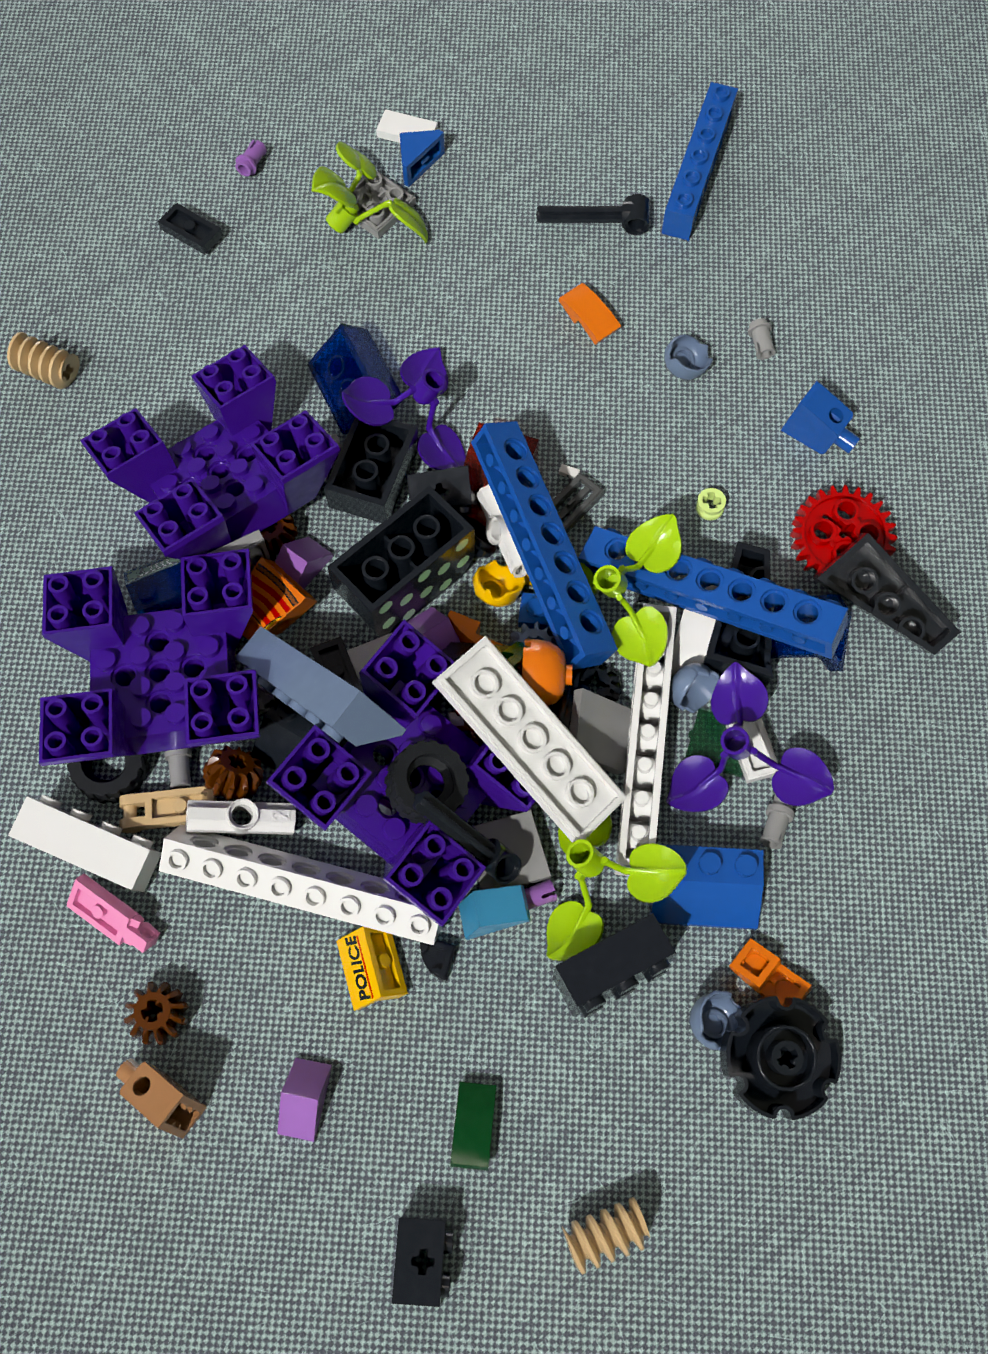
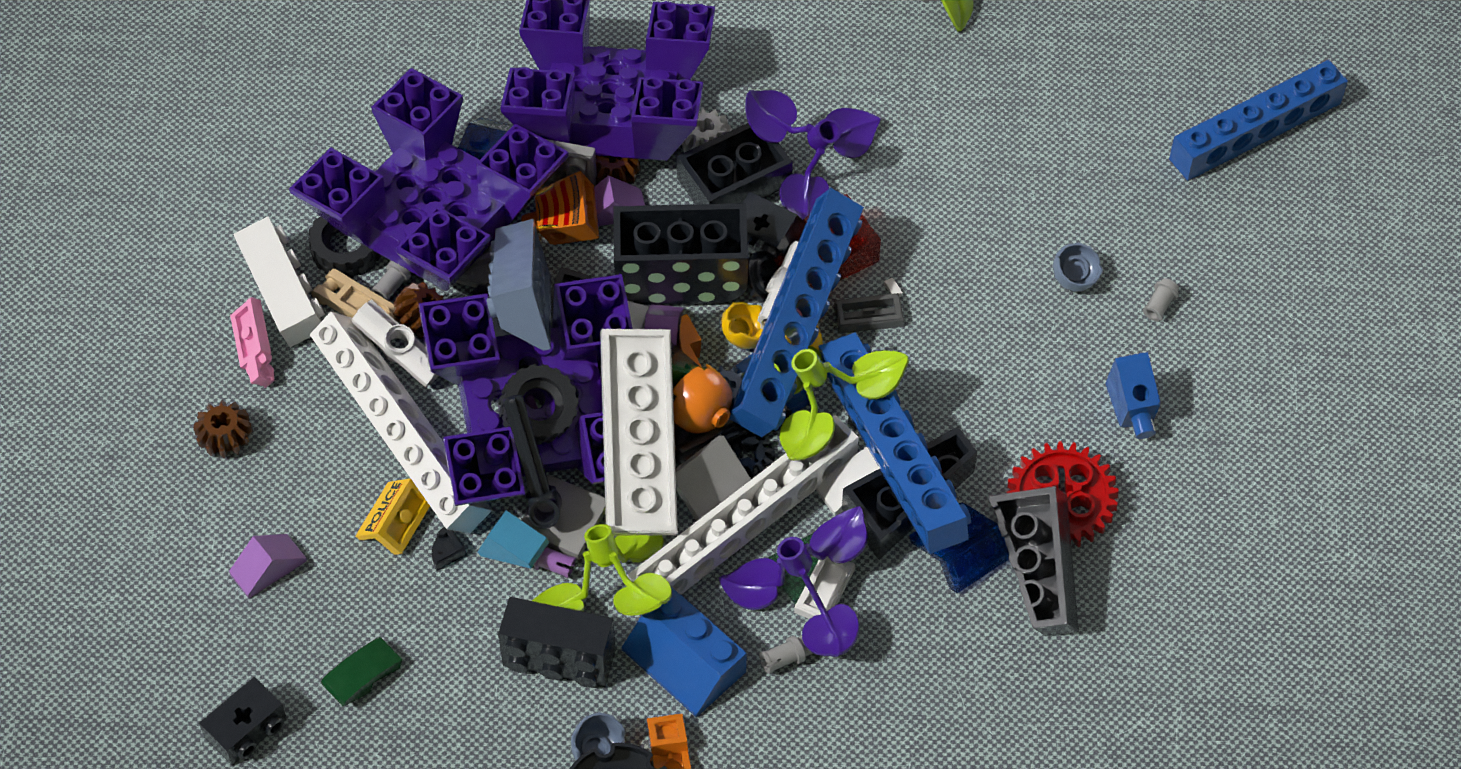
camera: 40 degrees right, 10 degrees down
(159, 1097) = (170, 468): medium nougat torso -> none
(340, 361) = (803, 77): clear blue slope -> none
(591, 312) = (1034, 178): orange slope -> none
(633, 214) = (1151, 123): black axle -> none
(692, 686) = (816, 506): sand blue hair -> none
(703, 508) = (983, 403): yellowish green bush -> none

